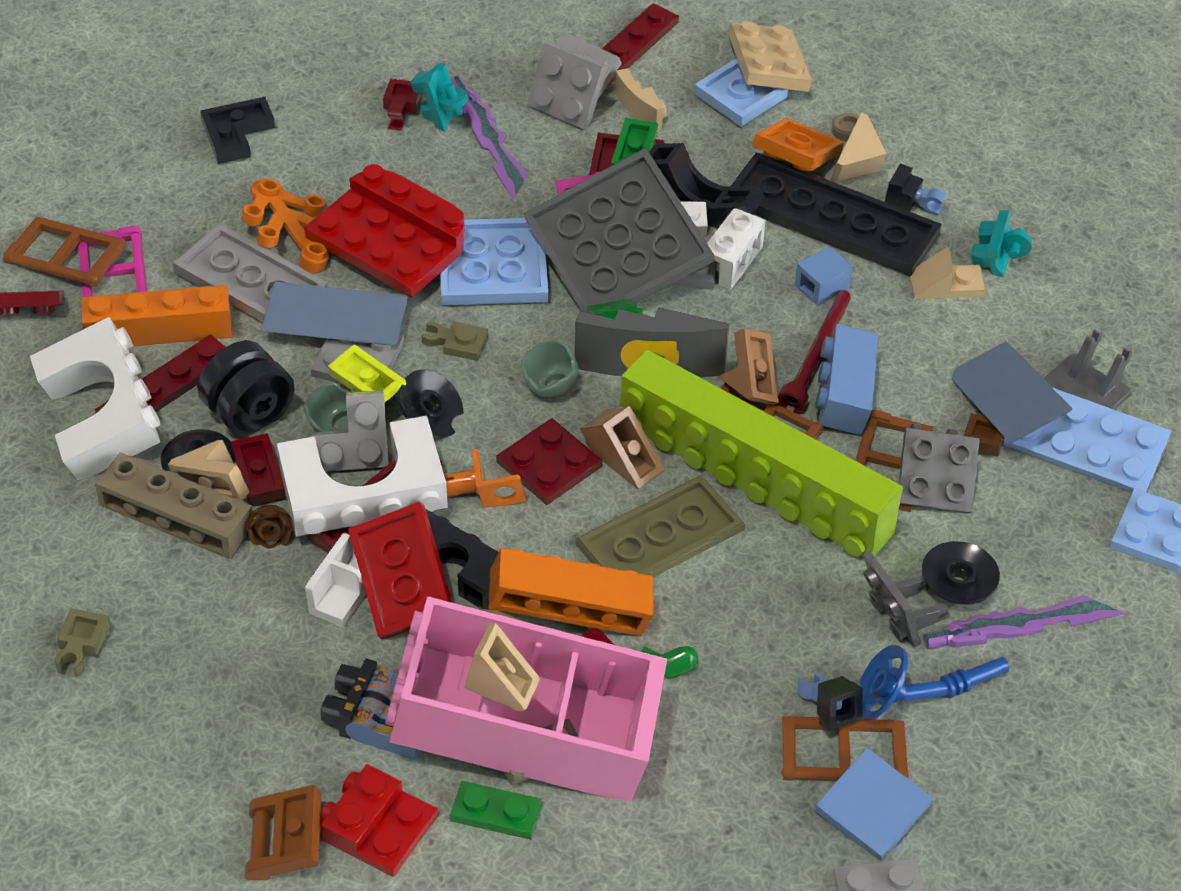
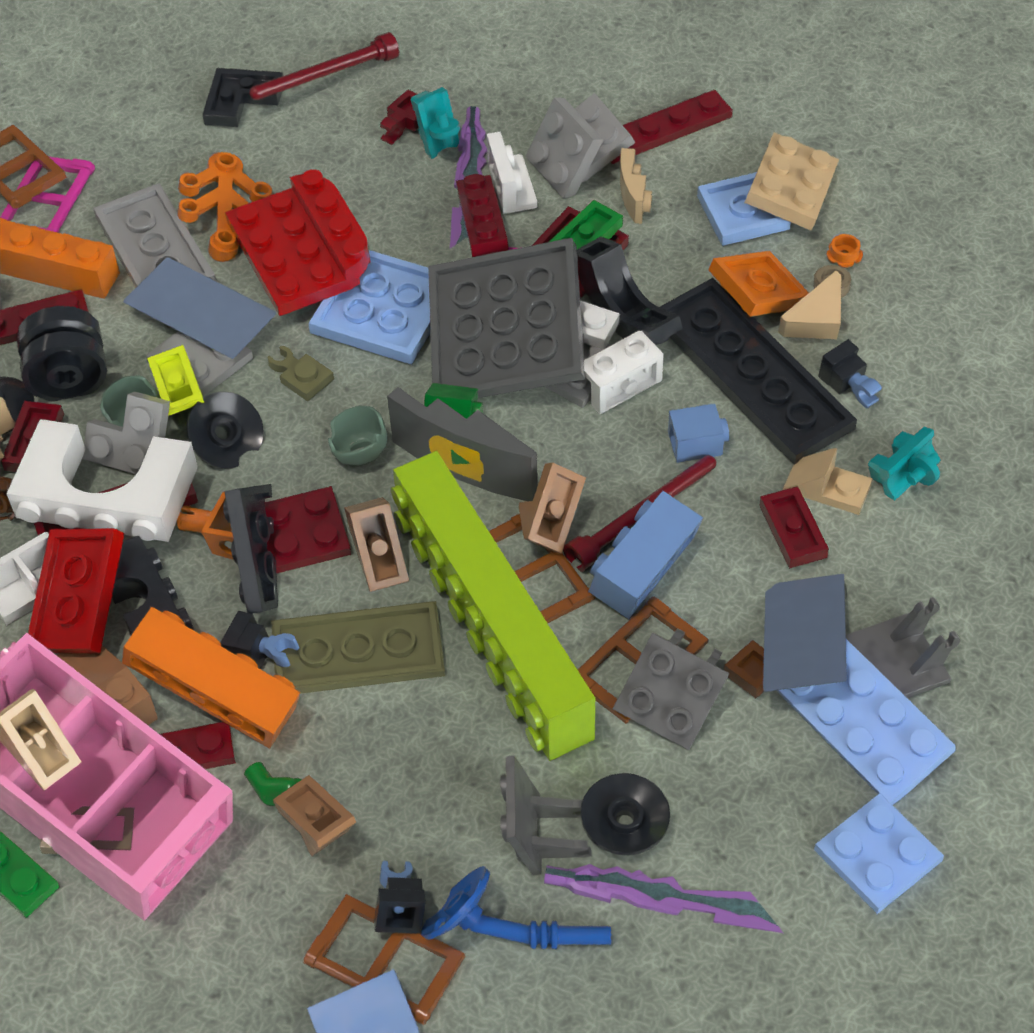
camera: 30 degrees right, 5 degrees up
(339, 50) = (383, 47): none -> dark red piece
(528, 123) = (509, 176): none -> white bracket
(534, 483) = (251, 532): none -> black wing
(537, 160) = (481, 215): none -> dark red plate
(576, 551) = (252, 640): none -> black piece
(726, 662) = (314, 814): none -> medium nougat slope
(843, 99) = (848, 244): none -> orange plate
(945, 320) = (793, 527): none -> dark red plate

